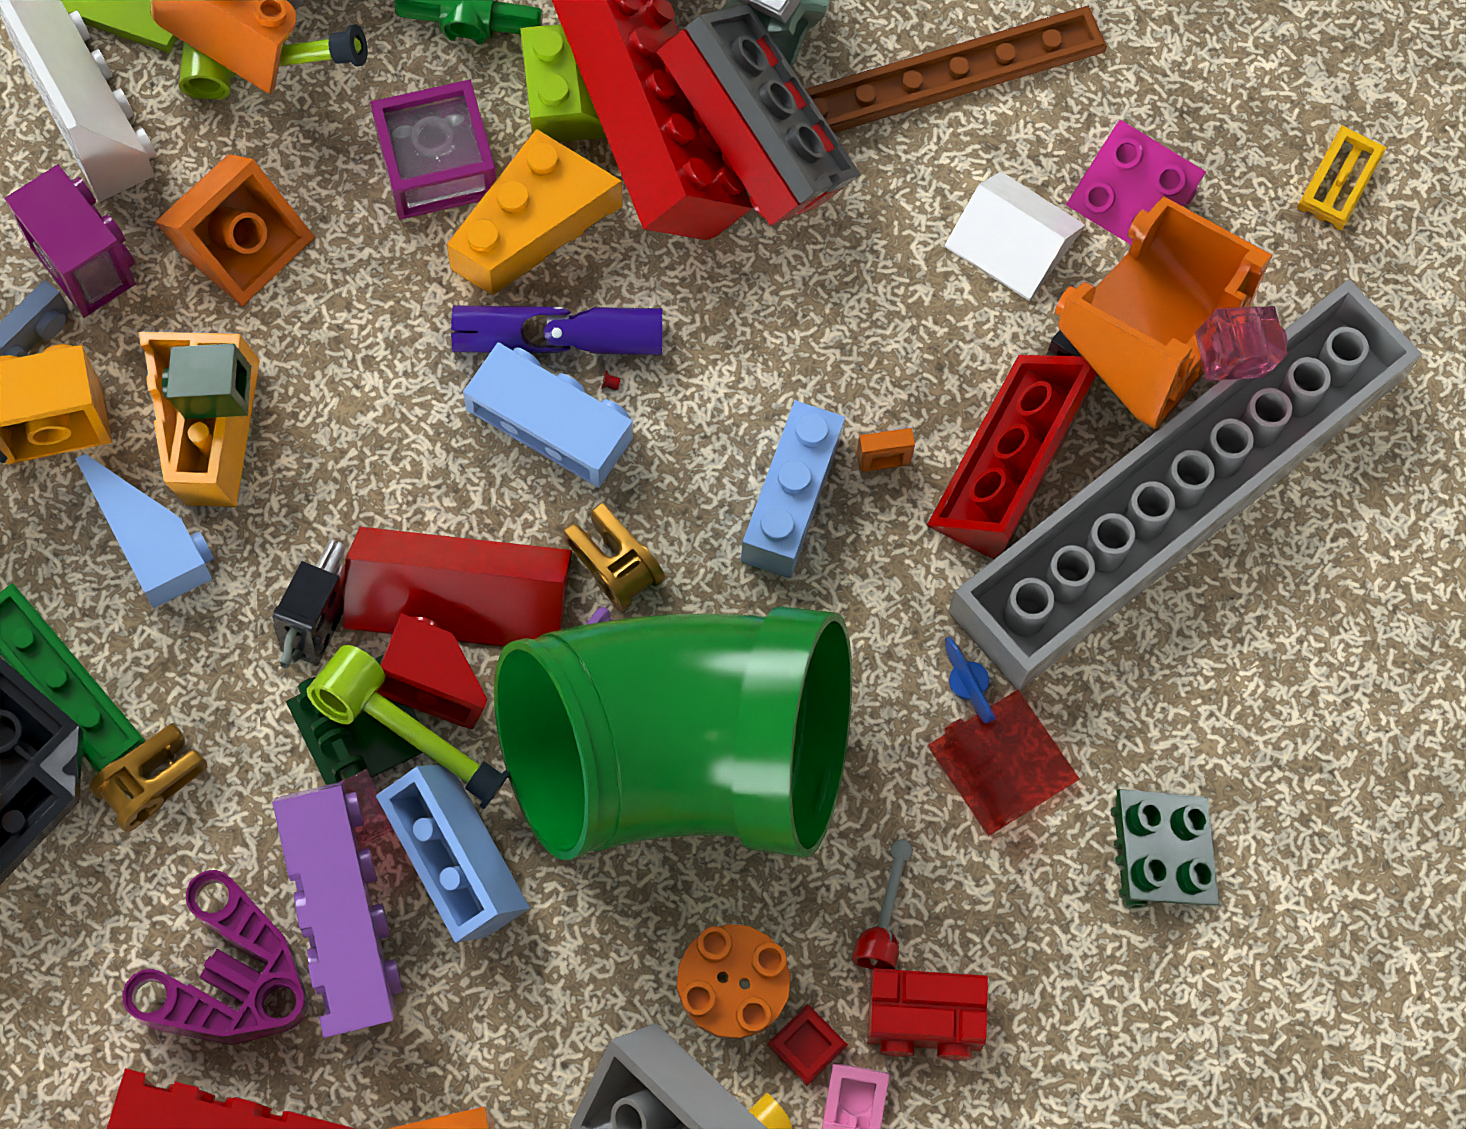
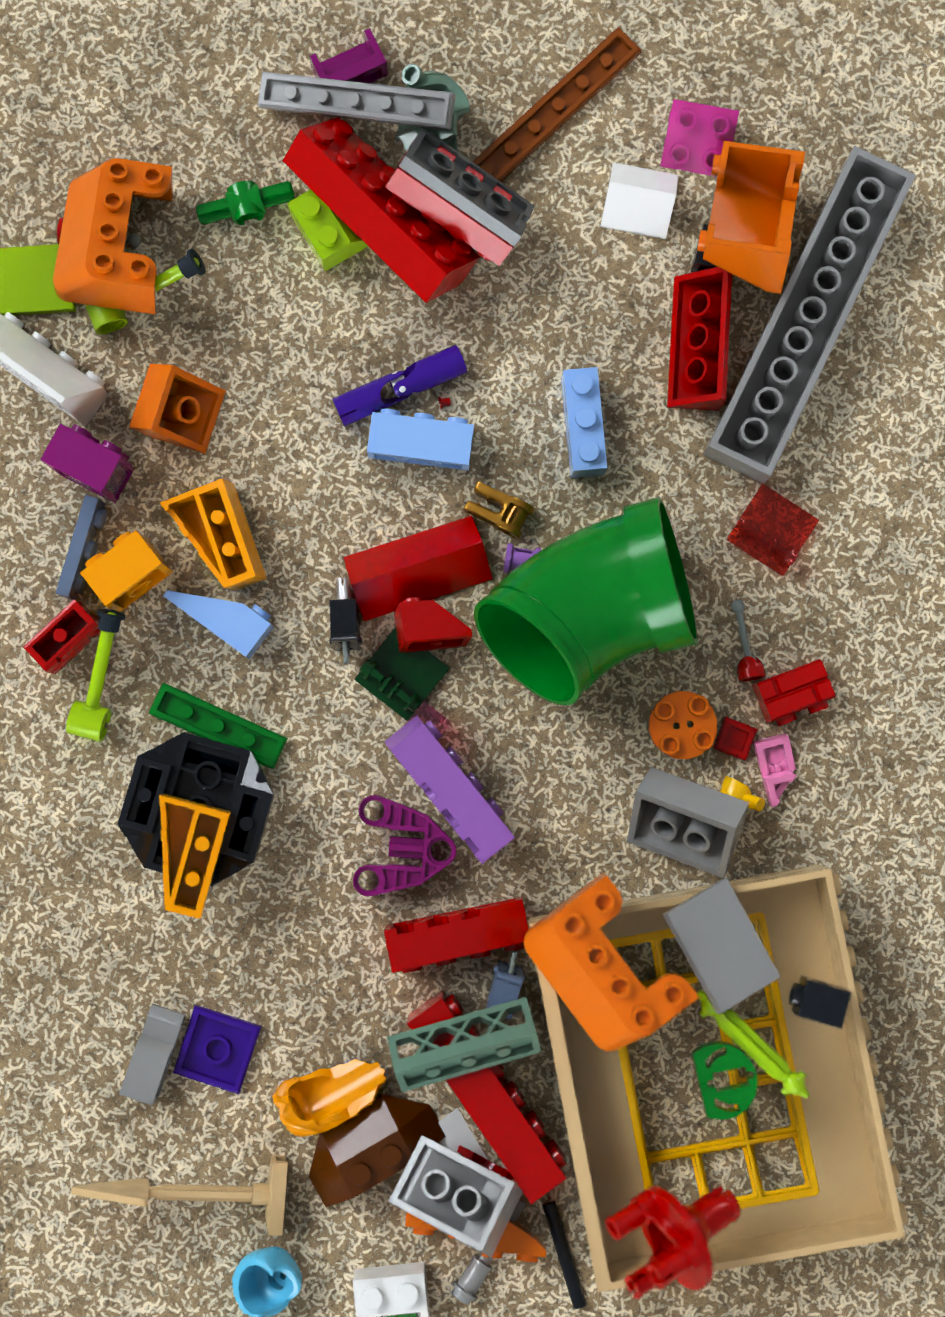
camera: 25 degrees left, 15 degrees up
(131, 773) = (303, 768): pearl gold piece -> none
(207, 381) = (221, 518): brick -> none
(351, 686) = (392, 660): lime piece -> none
(434, 148) = (272, 304): piece -> none
(452, 852) = (494, 724): light blue brick -> none
(530, 212) = (349, 317): light orange wedge -> none
(885, 449) = (625, 373): orange tile -> none
(969, 681) = (733, 491): blue piece -> none
(1164, 849) = (883, 539): hinge -> none
(1241, 343) = (812, 219): clear pink brick -> none
(1324, 210) = (814, 101): yellow tile -> none

